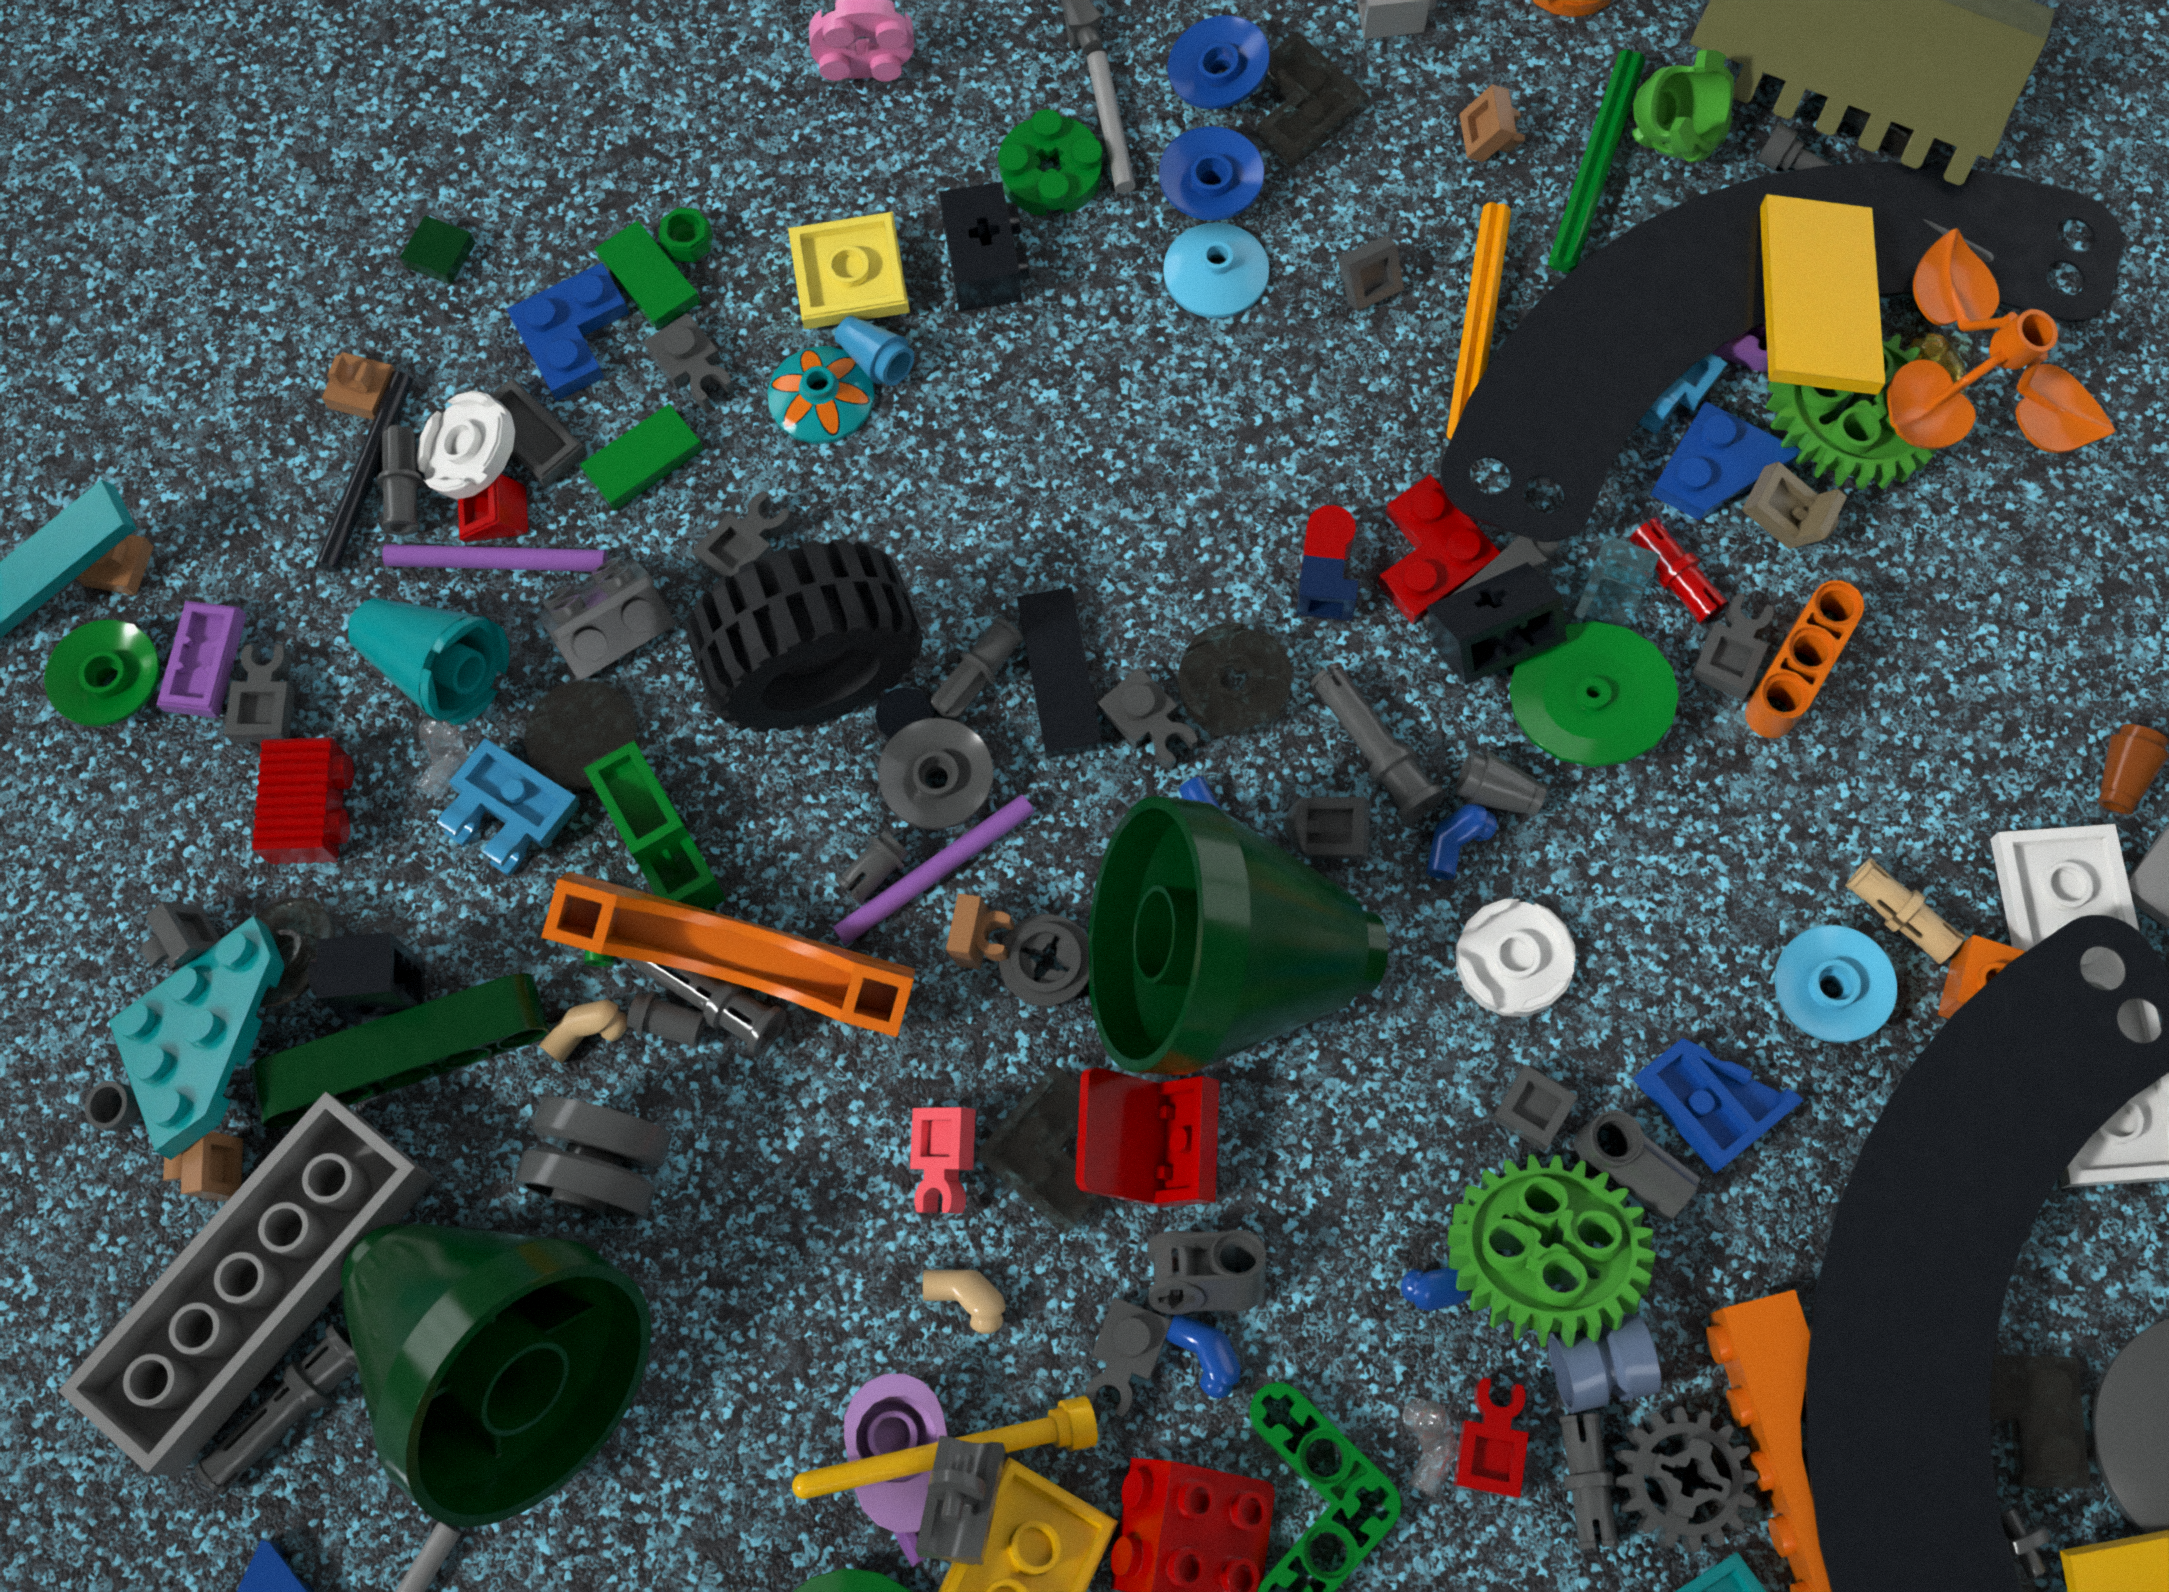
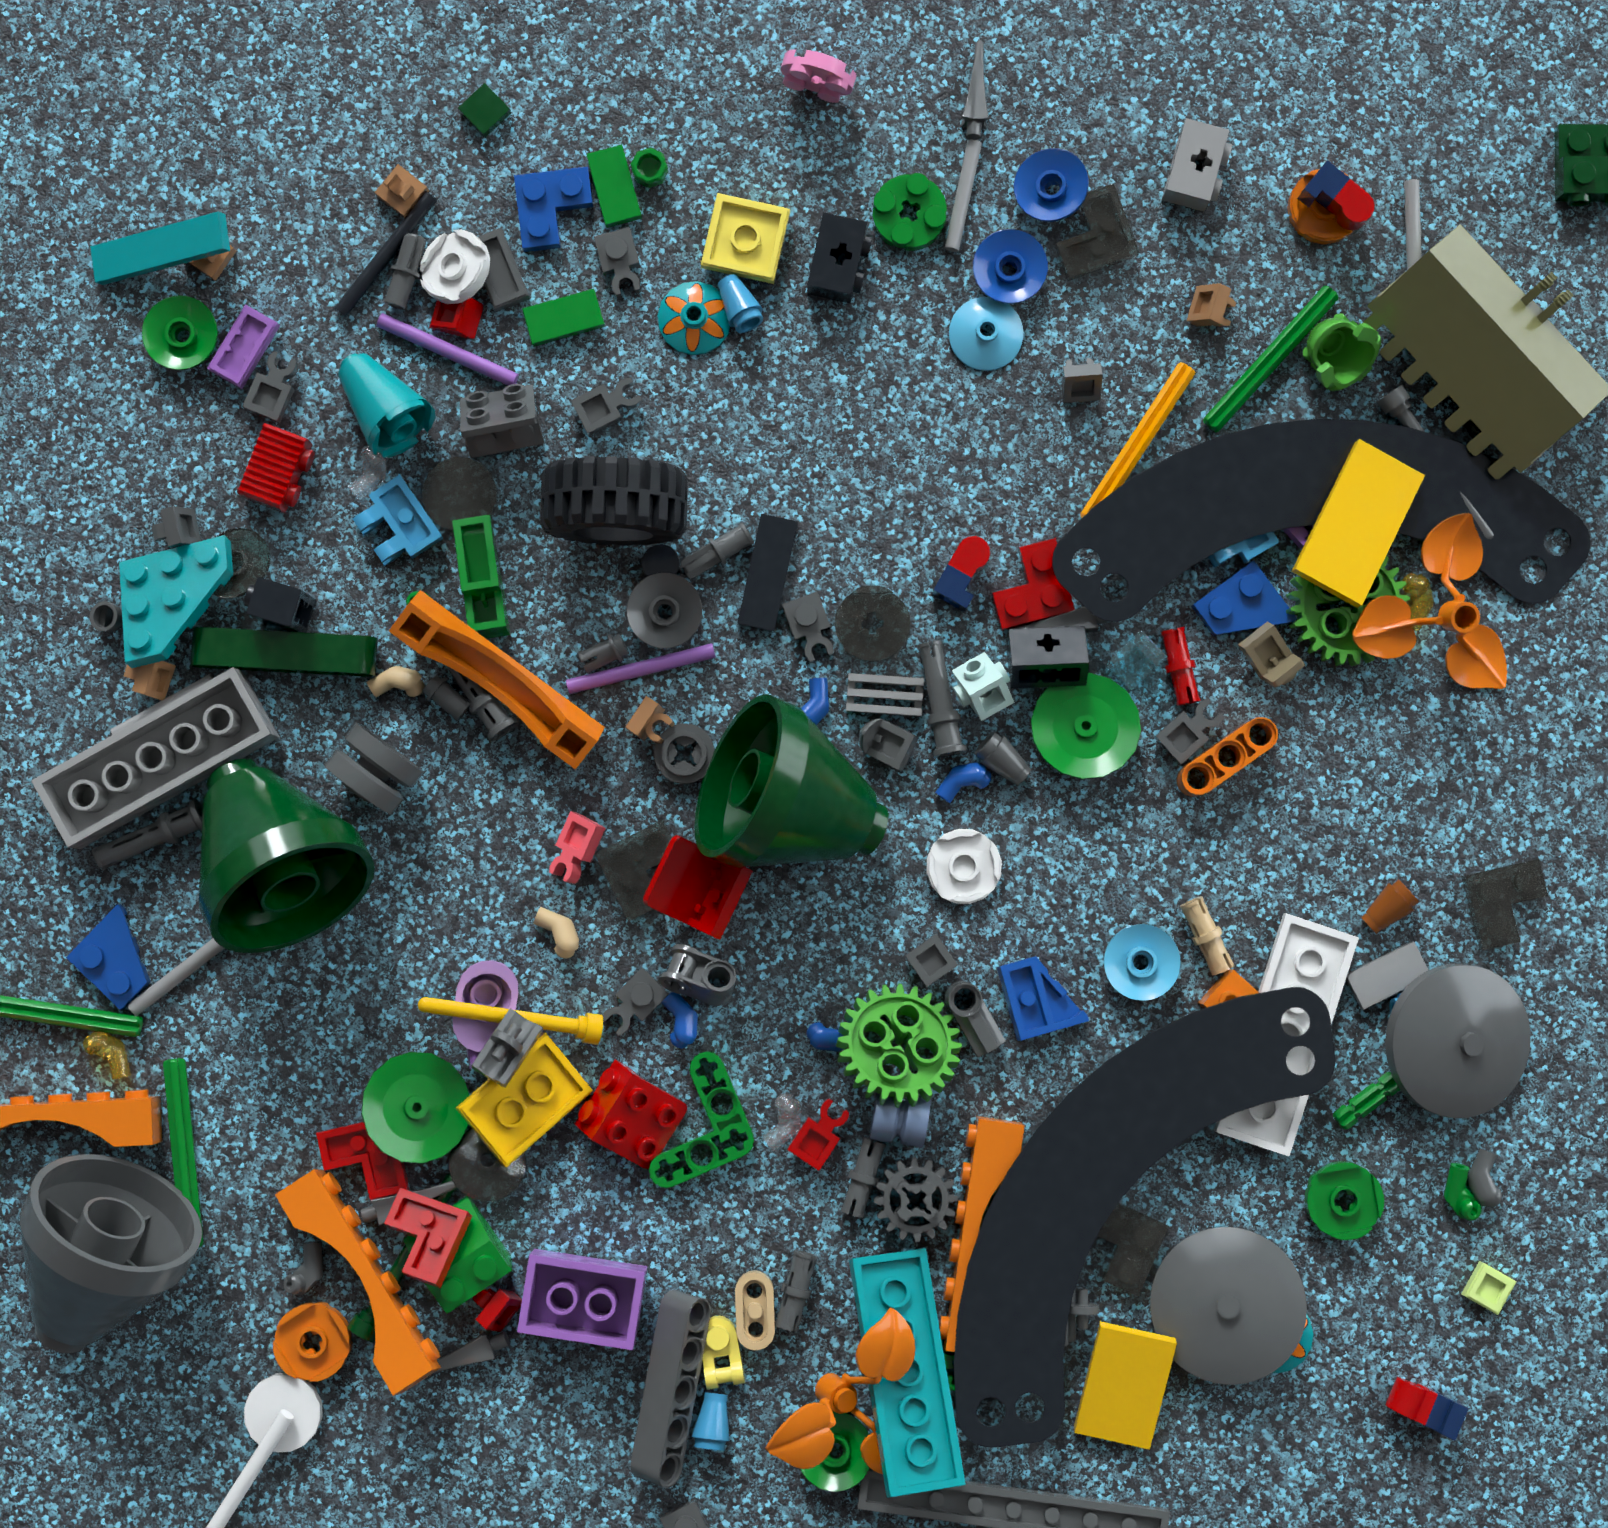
camera: 20 degrees right, 15 degrees up
(1288, 747) = (917, 697): none -> light grey tile
(1427, 695) = (982, 686): none -> light aqua brick

